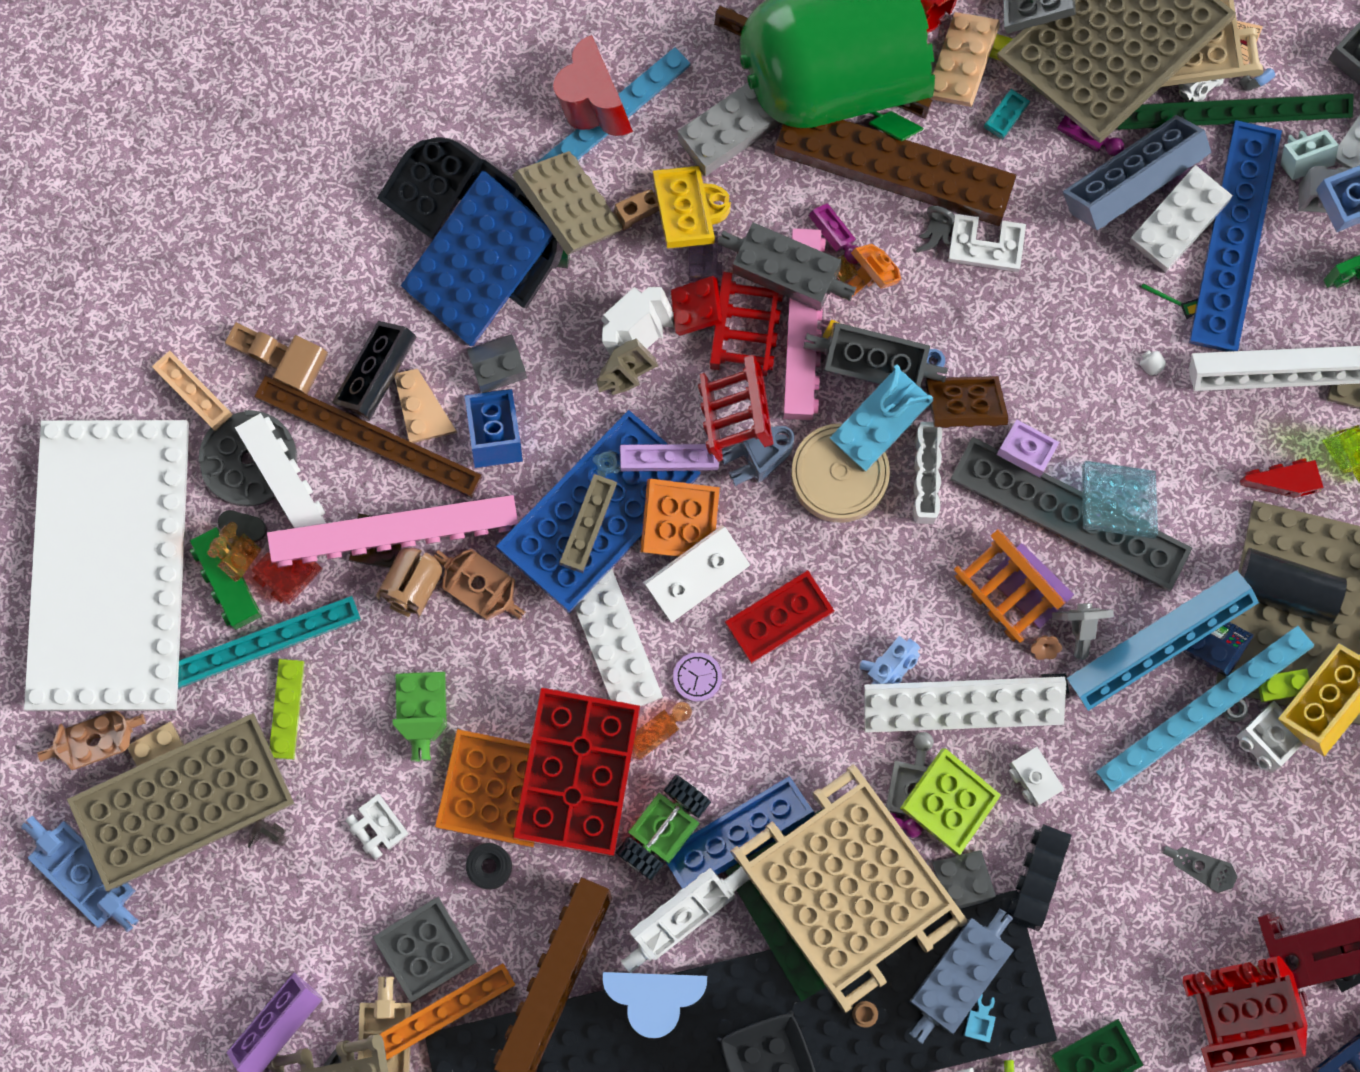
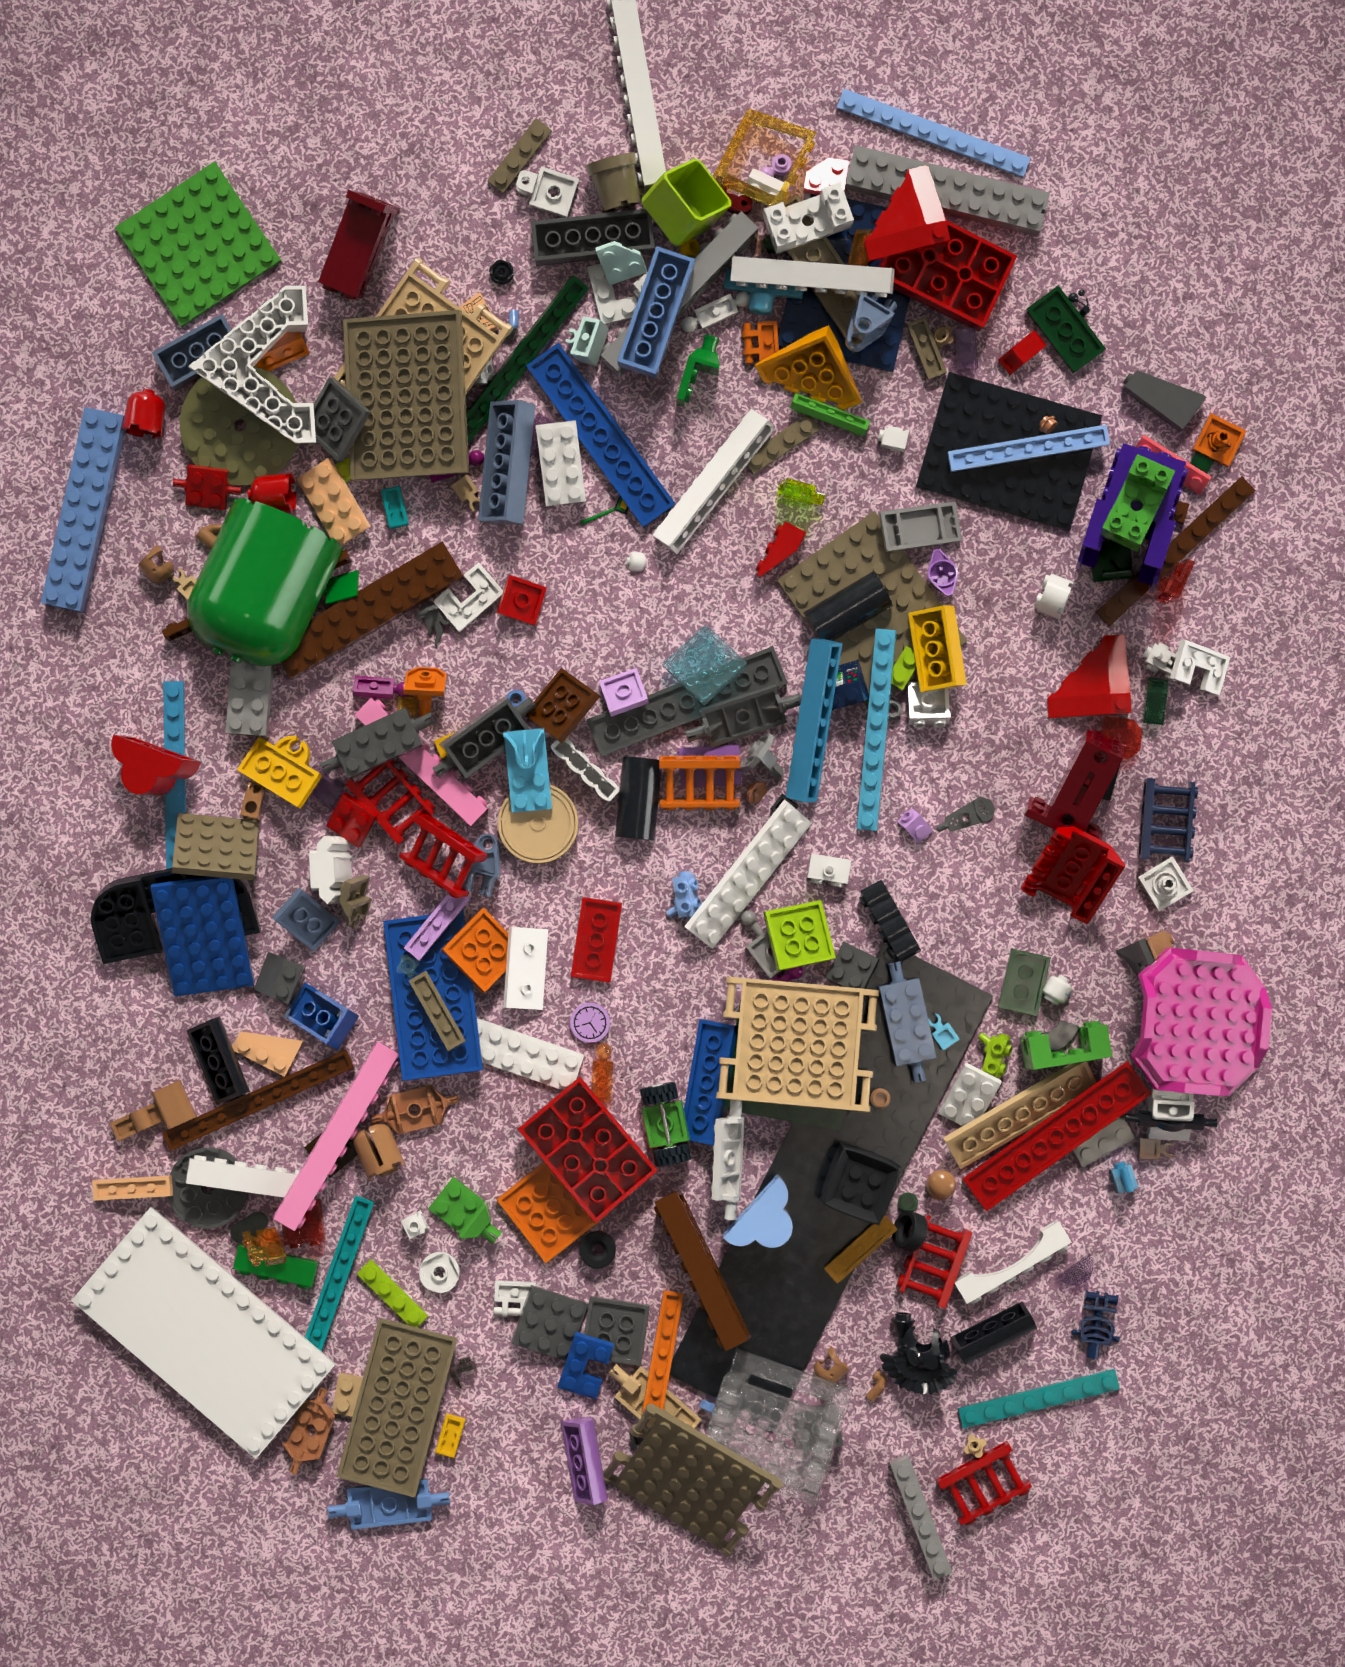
camera: 50 degrees left, 10 degrees up
(194, 876) = (450, 1435): none -> yellow plate
(338, 722) = (428, 1268): none -> white plate
(369, 673) = (415, 1224): none -> white window
(378, 931) = (573, 1376): none -> blue plate
(380, 879) = (549, 1322): none -> dark grey plate
(570, 338) = (306, 919): none -> sand blue plate
(943, 545) = (638, 798): none -> black brick
(1027, 289) = (521, 600): none -> red plate
(1078, 161) = (465, 490): none -> tan plate
(1104, 574) = (743, 716): none -> dark grey plate
(1149, 824) = (915, 825): none -> lavender bracket
(1298, 27) = (497, 267): none -> black plate

